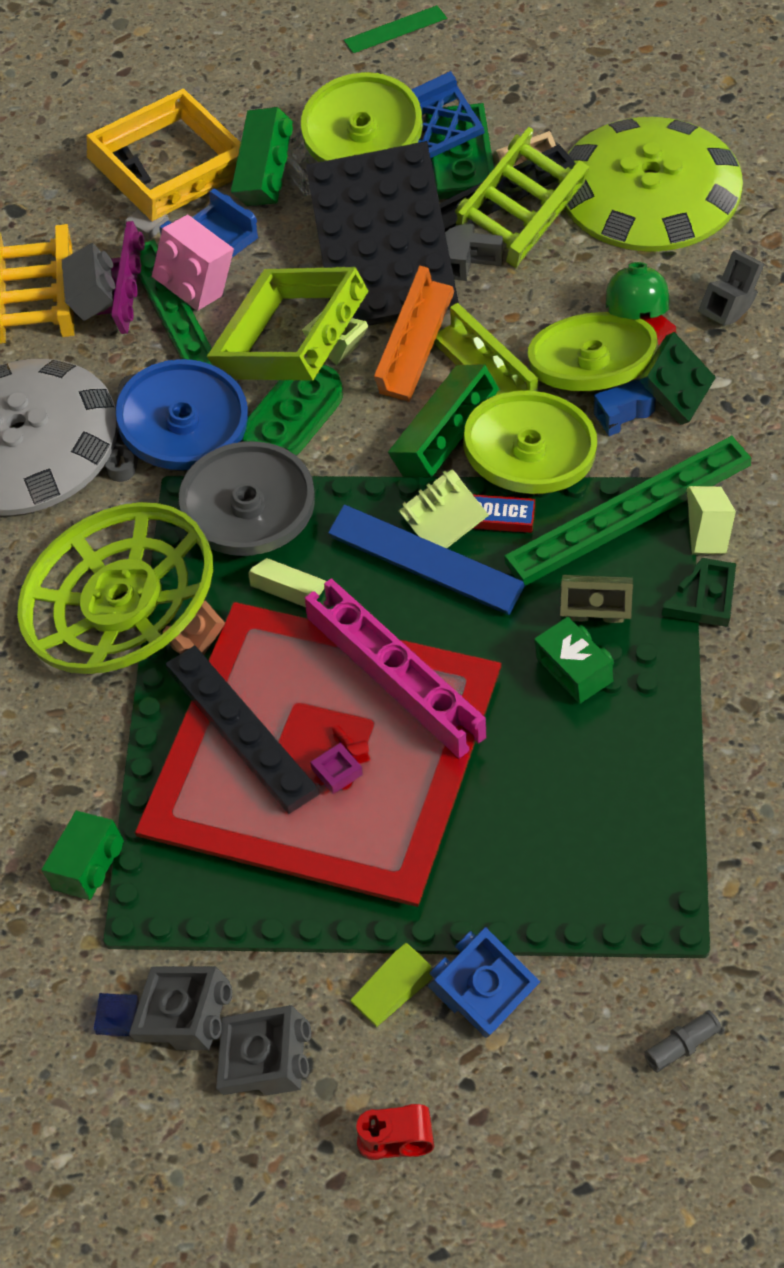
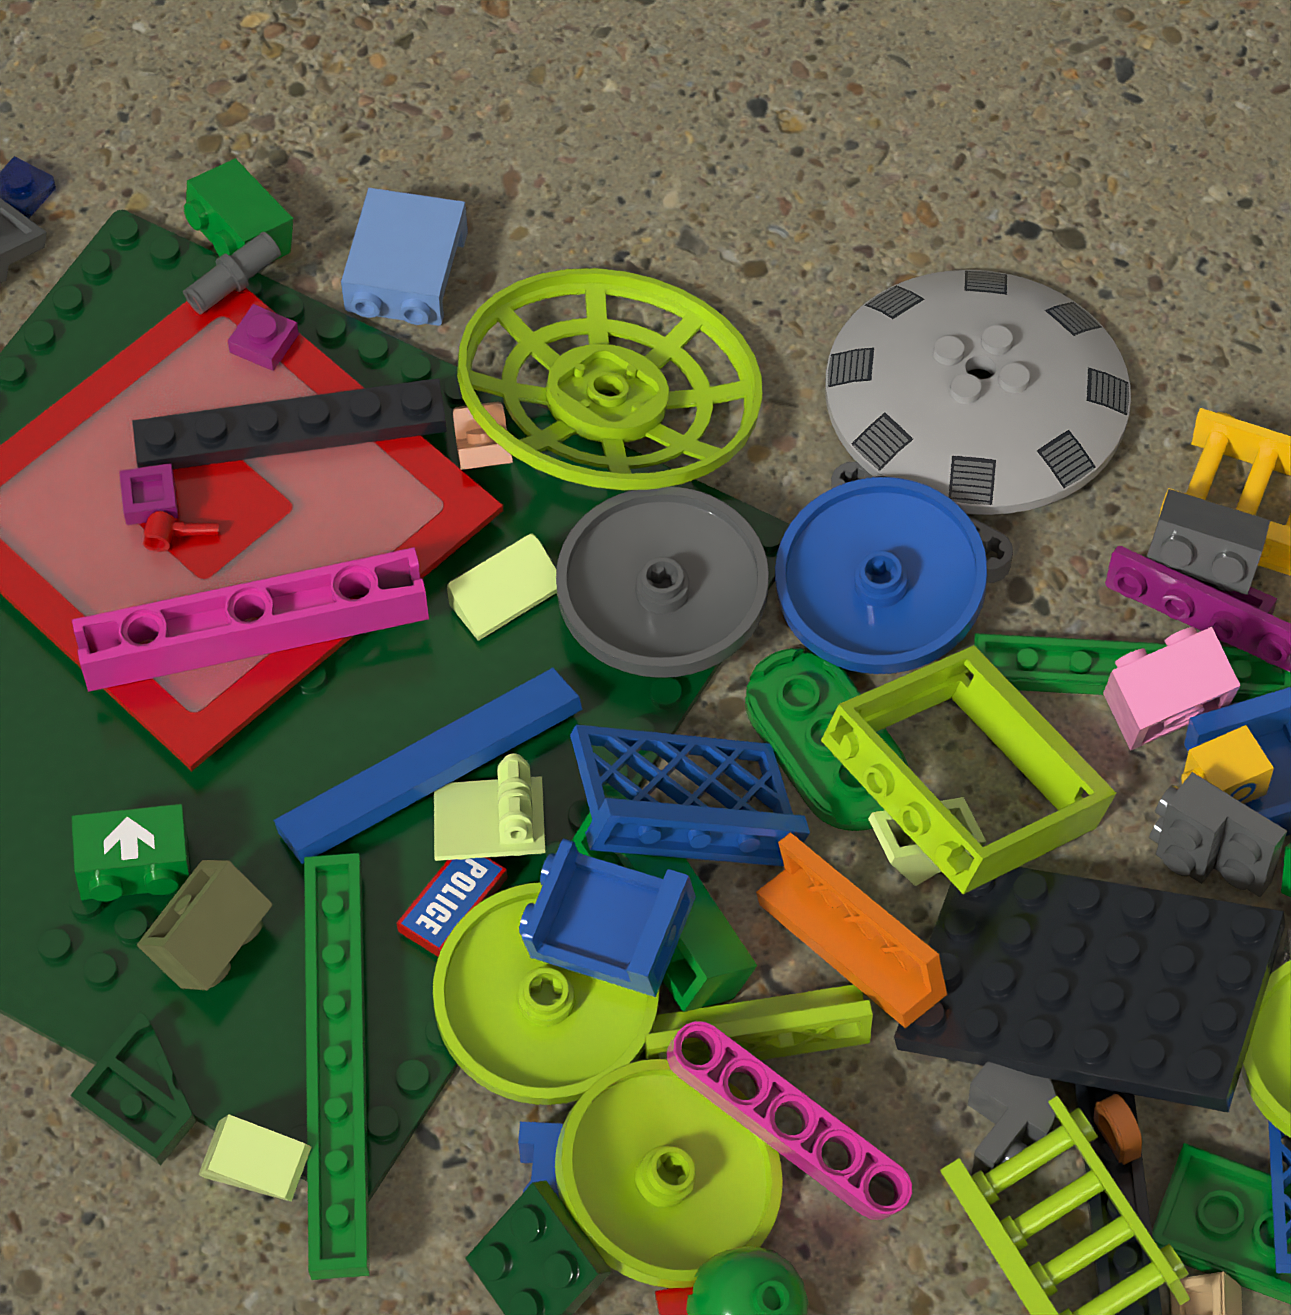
camera: 115 degrees right, 5 degrees up
(67, 745) = (403, 256): none -> medium blue panel
(142, 814) = (232, 272): none -> dark grey pin
(180, 776) = (263, 337): none -> magenta plate
(228, 228) = (1232, 764): none -> yellow brick
(267, 224) = (1212, 830): none -> dark grey plate
(394, 408) = (690, 826): none -> blue fence
(452, 196) = (1119, 1128): none -> dark orange tile
(481, 407) = (606, 919): none -> blue panel
(536, 313) = (817, 1123): none -> dark pink beam

